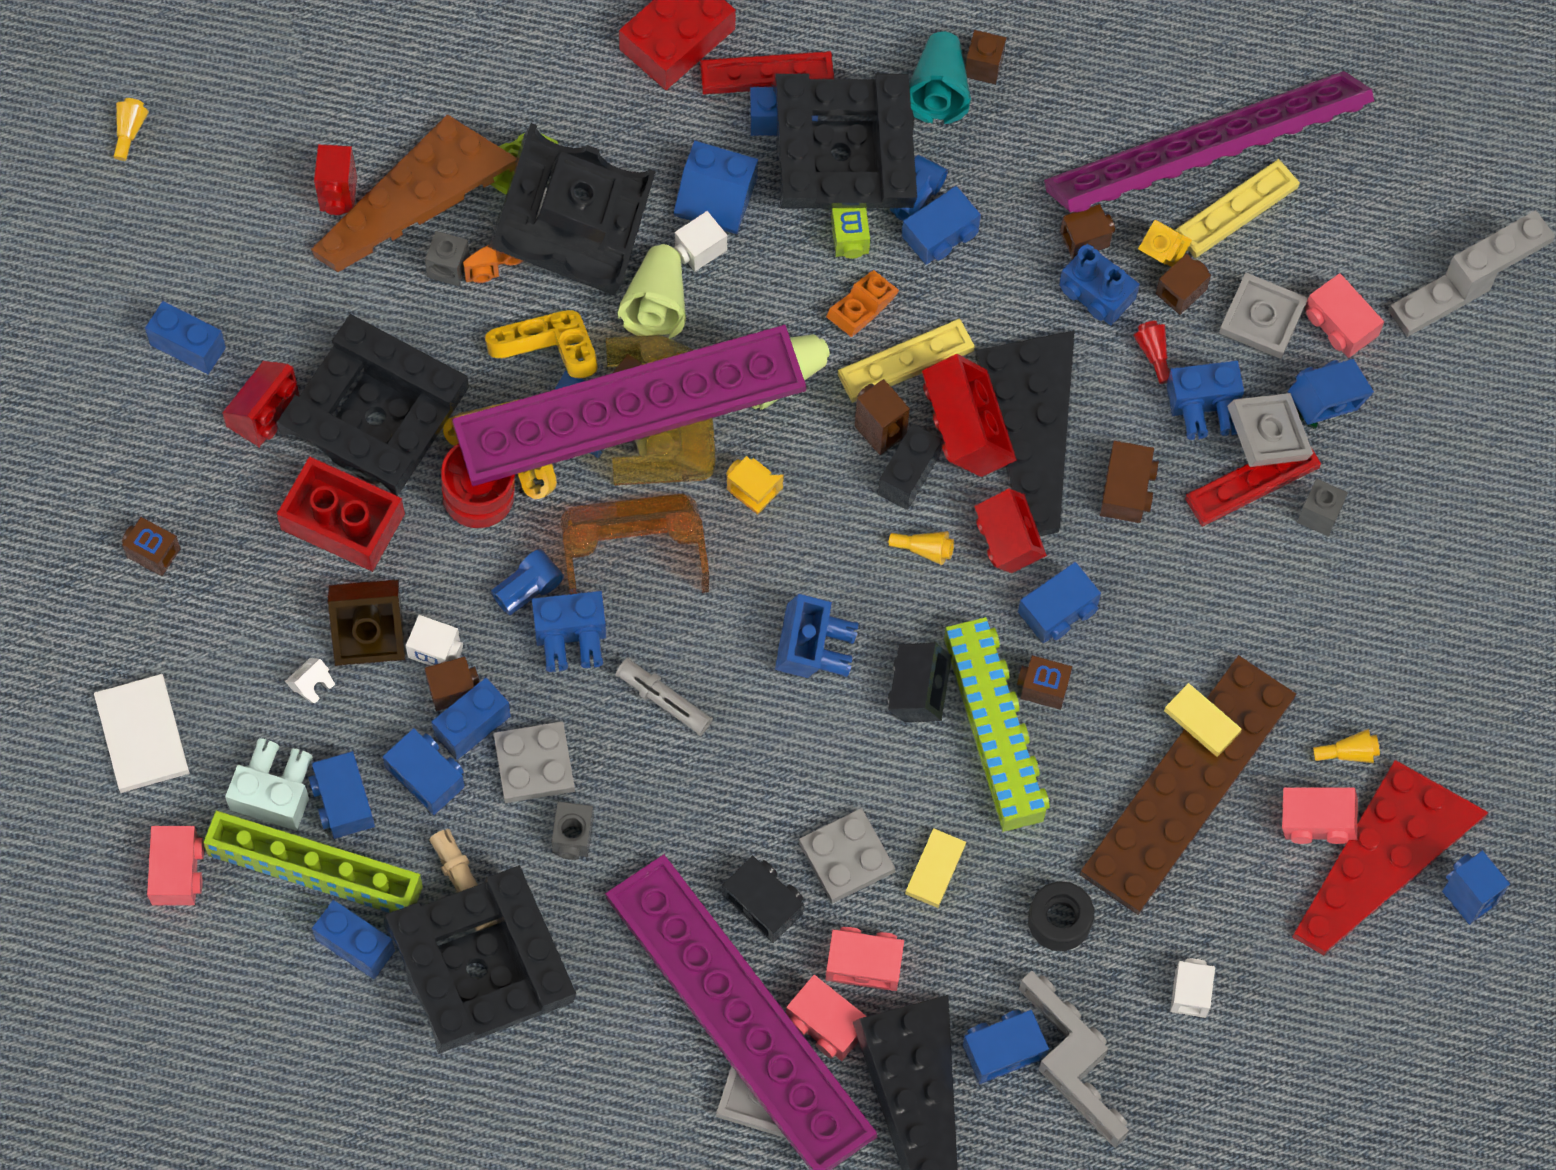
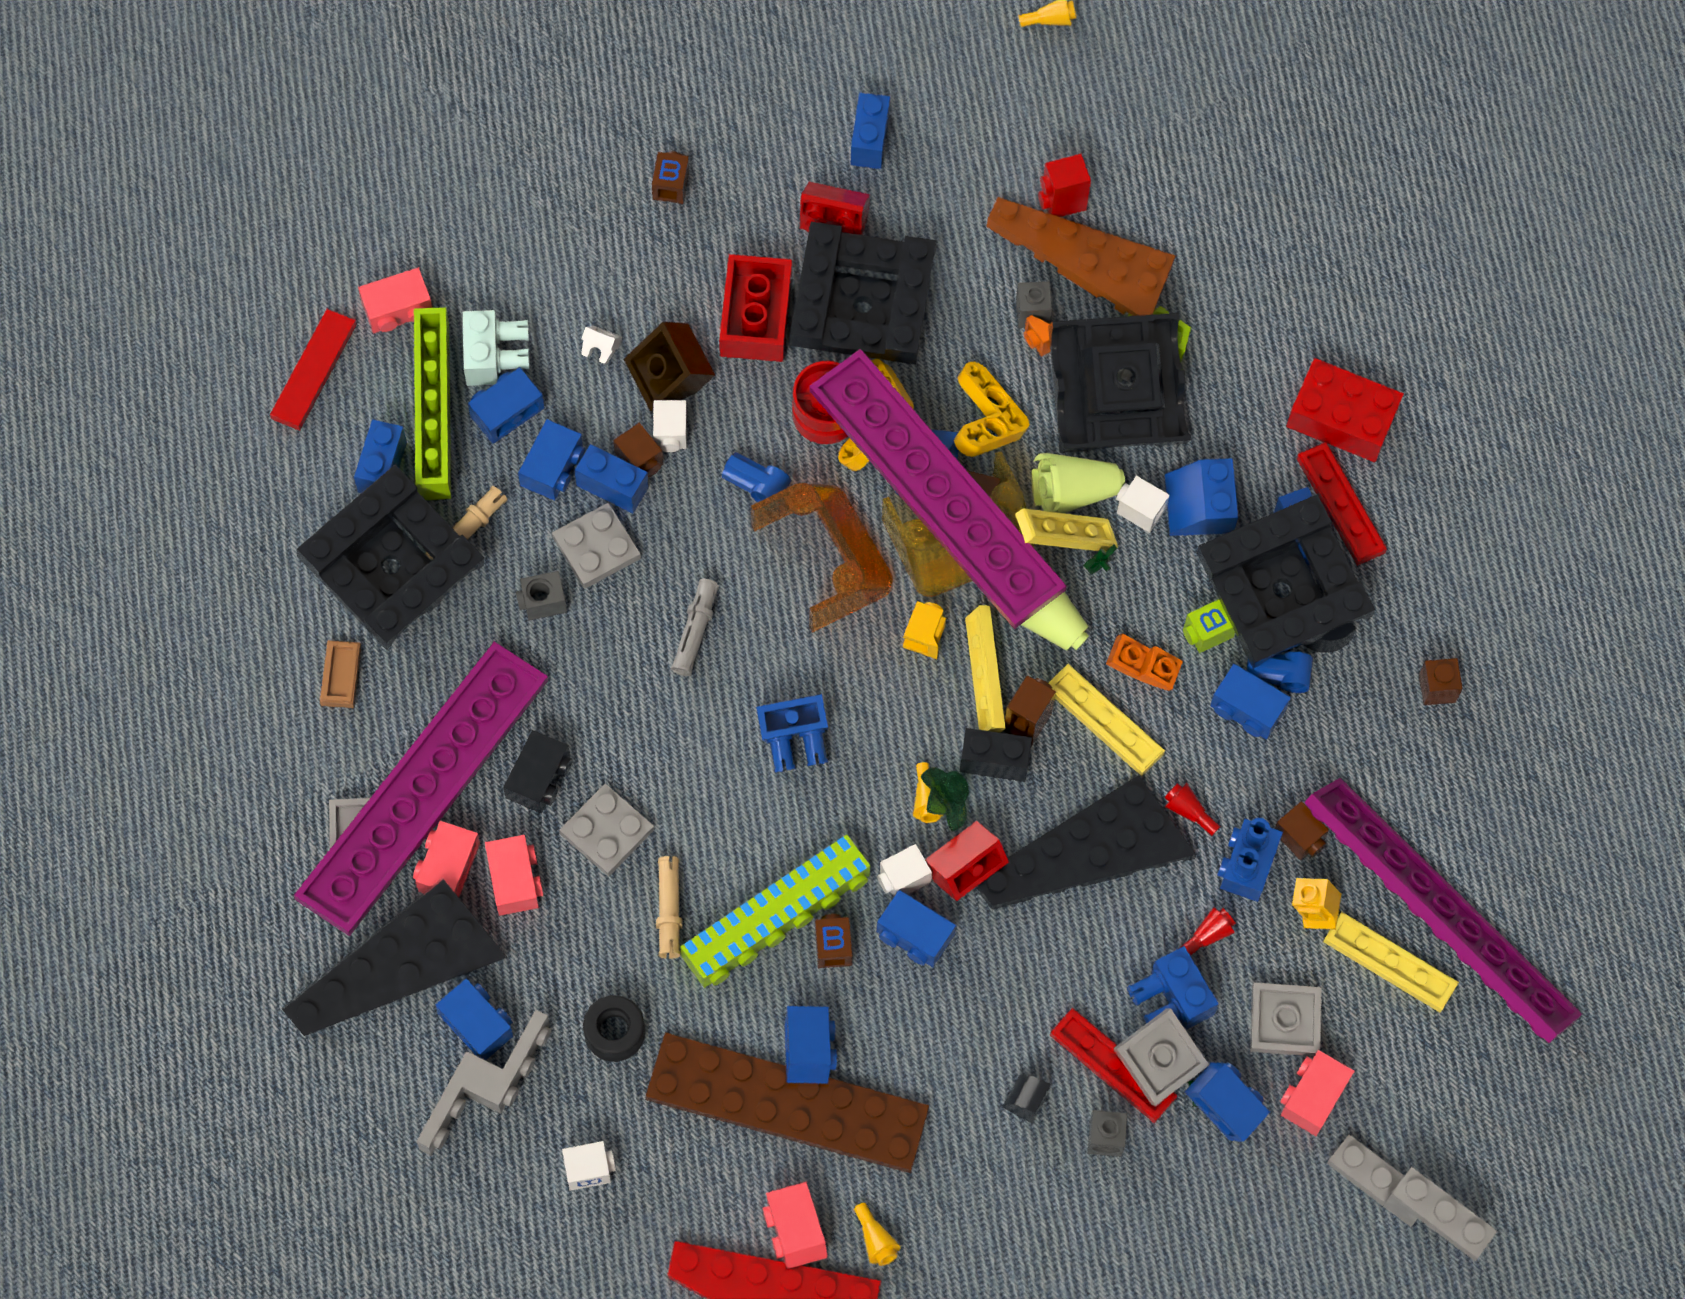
camera: 70 degrees right, 0 degrees up
(141, 733) = (505, 235): white tile -> none
(214, 978) = (313, 369): none -> red tile
(570, 620) = (734, 523): blue brick -> none
(575, 1061) = (340, 674): none -> medium nougat tile
(713, 311) = (1065, 530): none -> light yellow tile
(743, 299) = (1100, 560): none -> dark green plant
(820, 445) = (985, 670): none -> light yellow tile
(919, 682) = (787, 832): black brick -> none
(930, 519) = (947, 795): none -> clear green plate
(935, 868) = (622, 908): light yellow tile -> none
(940, 81) = (1397, 647): teal cone -> none
(960, 825) = (669, 919): none -> tan pin
(968, 415) = (1060, 783): red brick -> none
(998, 592) = (904, 872): none -> white brick
(1017, 321) = (1185, 803): none -> red cone
(1127, 482) = (1061, 950): reddish brown brick -> none
(1145, 739) = (808, 1044): none -> blue brick
(1183, 283) = (1286, 936): reddish brown brick -> none
(1202, 720) = (846, 1089): light yellow tile -> none
(1262, 564) = (1027, 1097): none -> black brick

